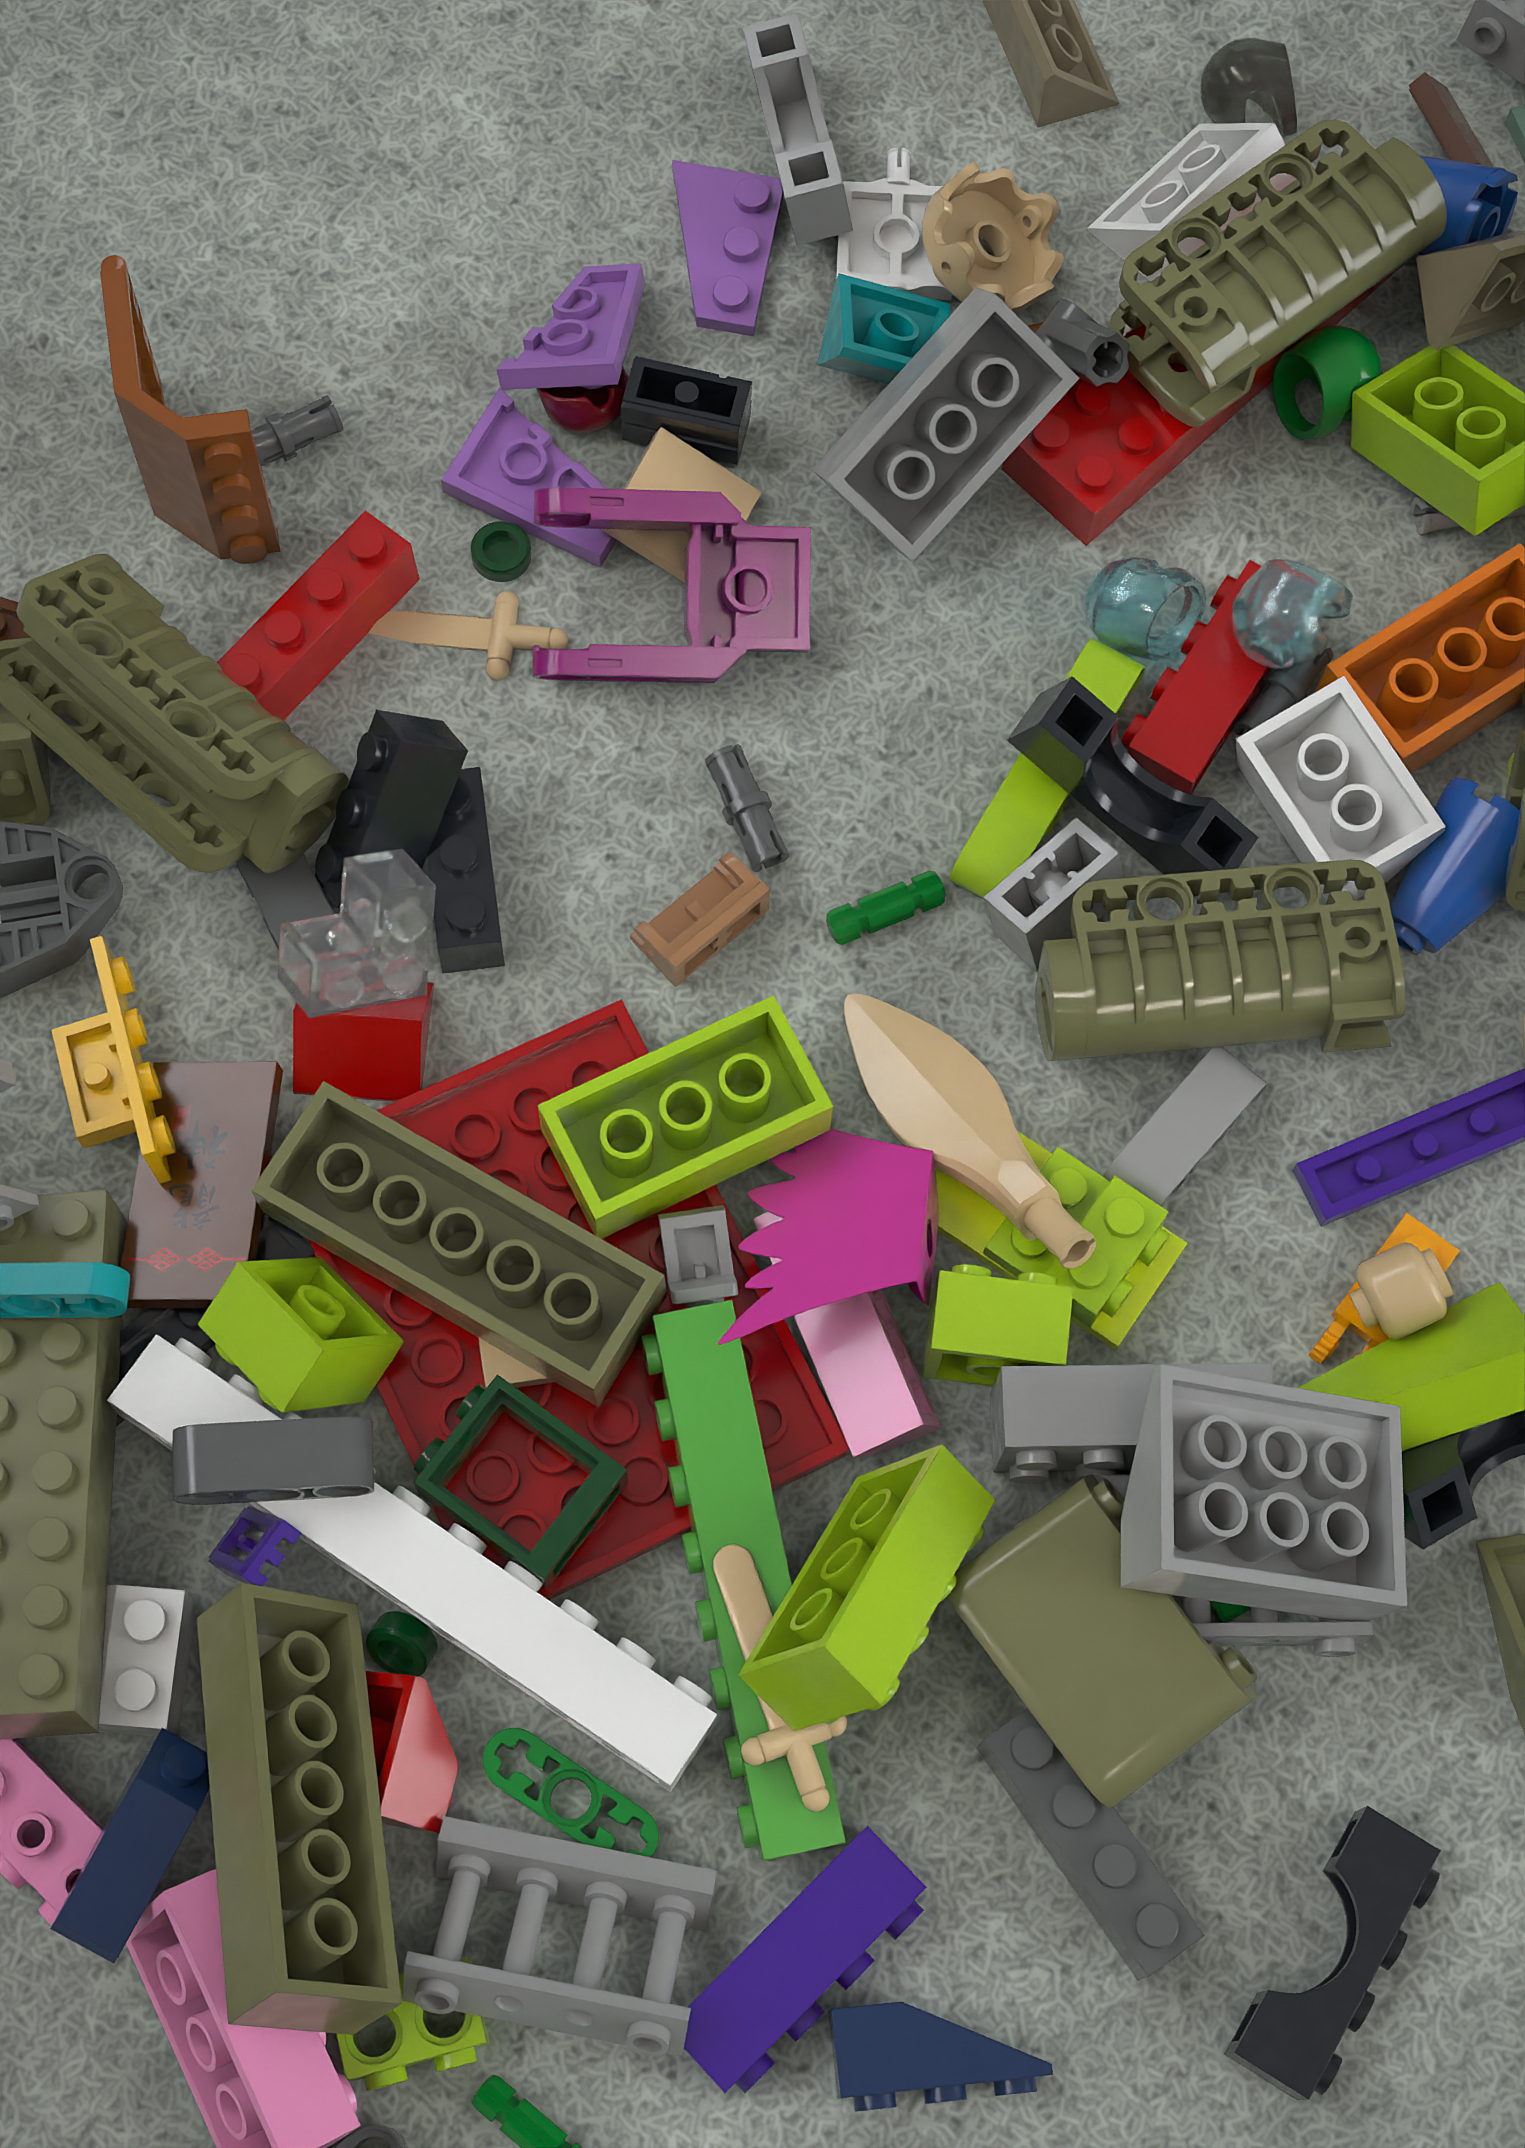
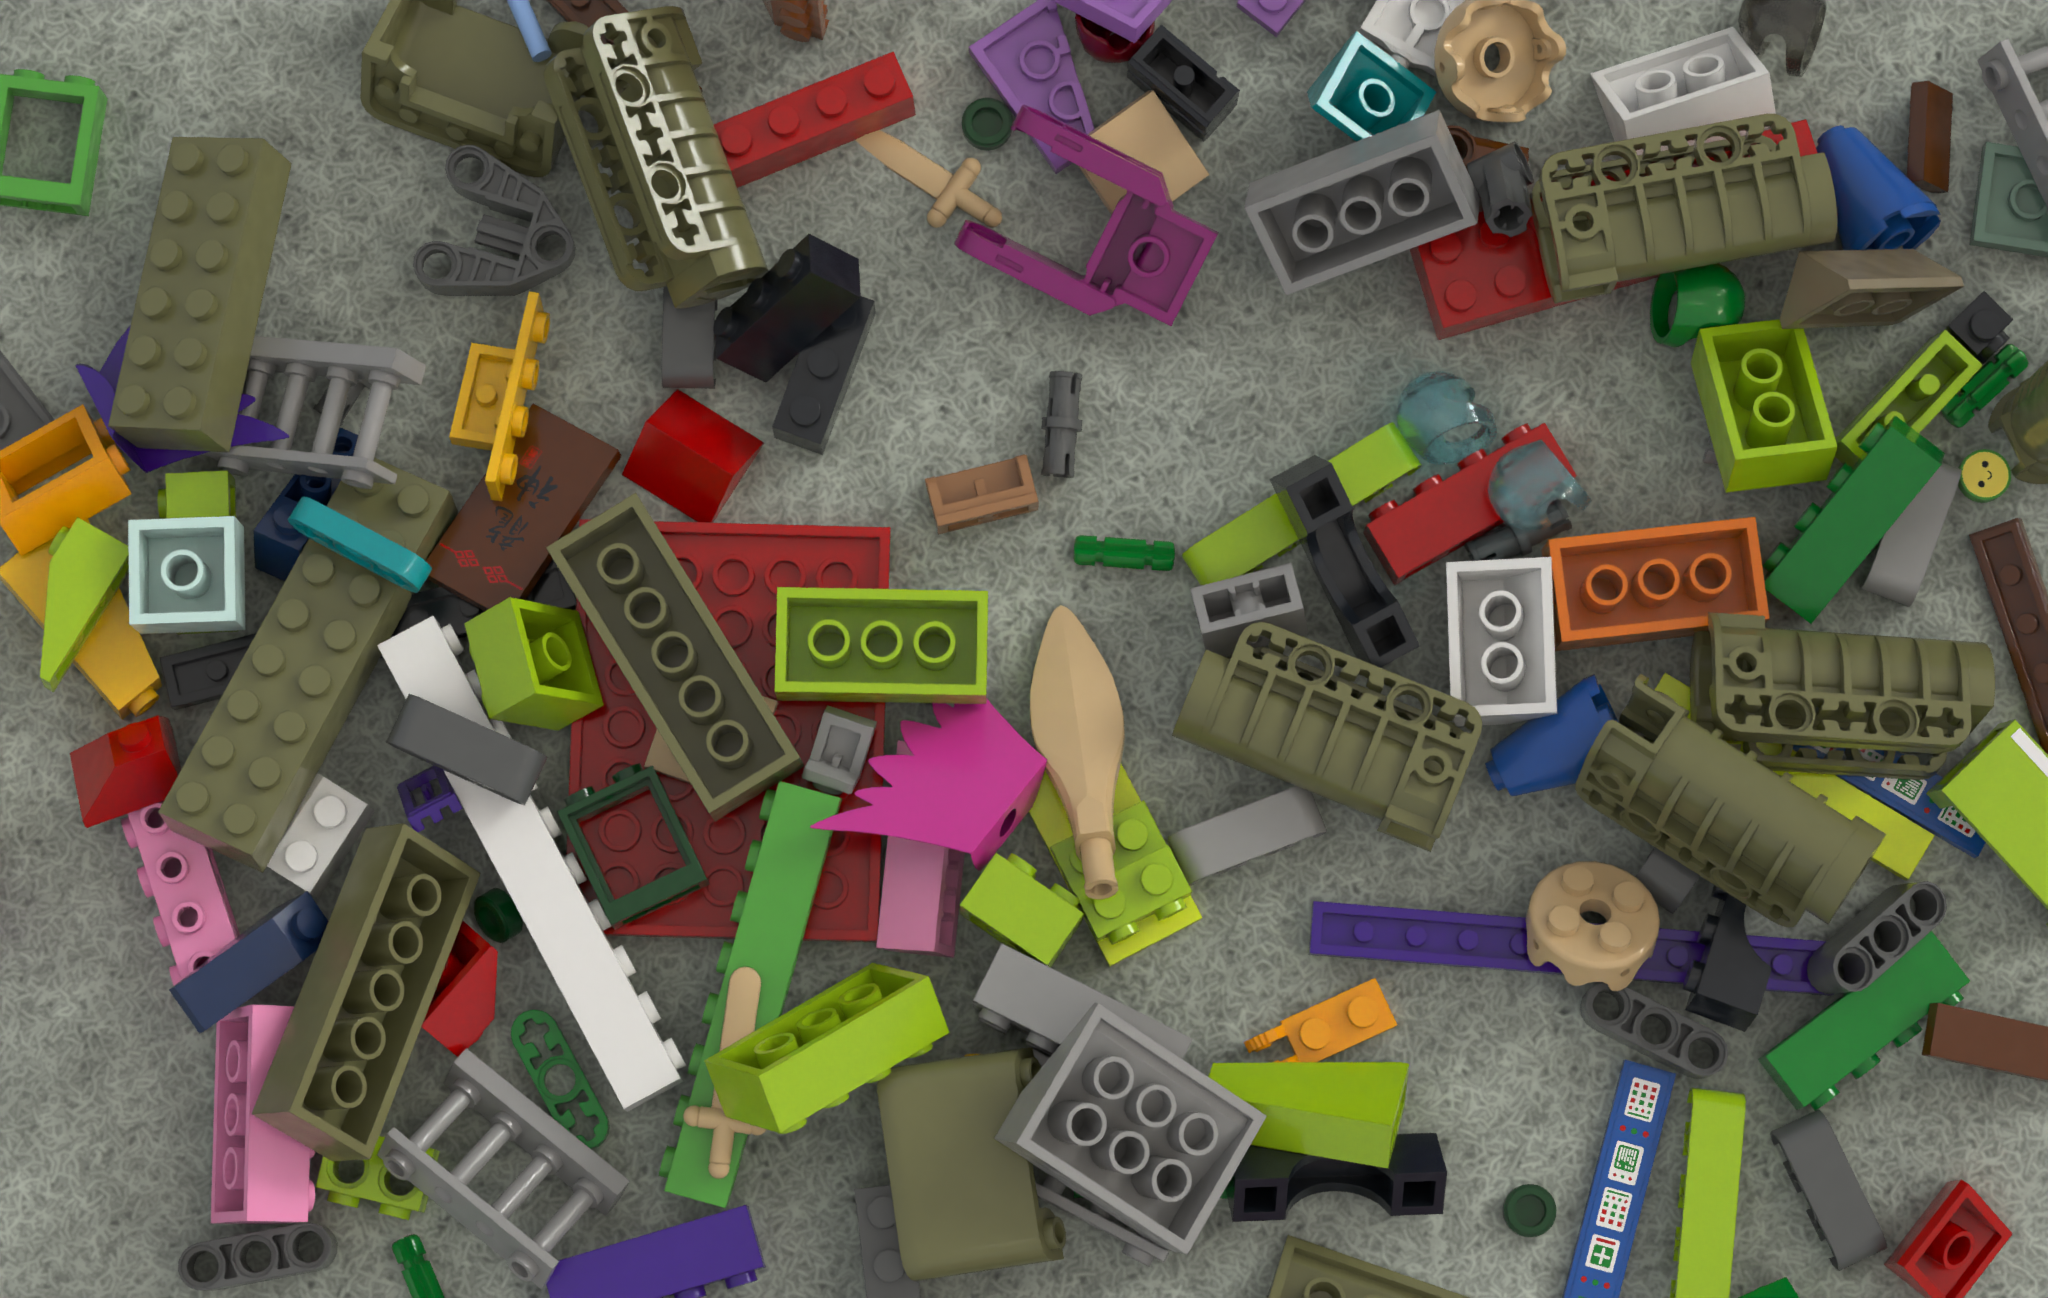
camera: 30 degrees right, 10 degrees up
(370, 949) = (721, 401): clear brick -> none
(1401, 1290) = (1327, 1033): tan head -> none

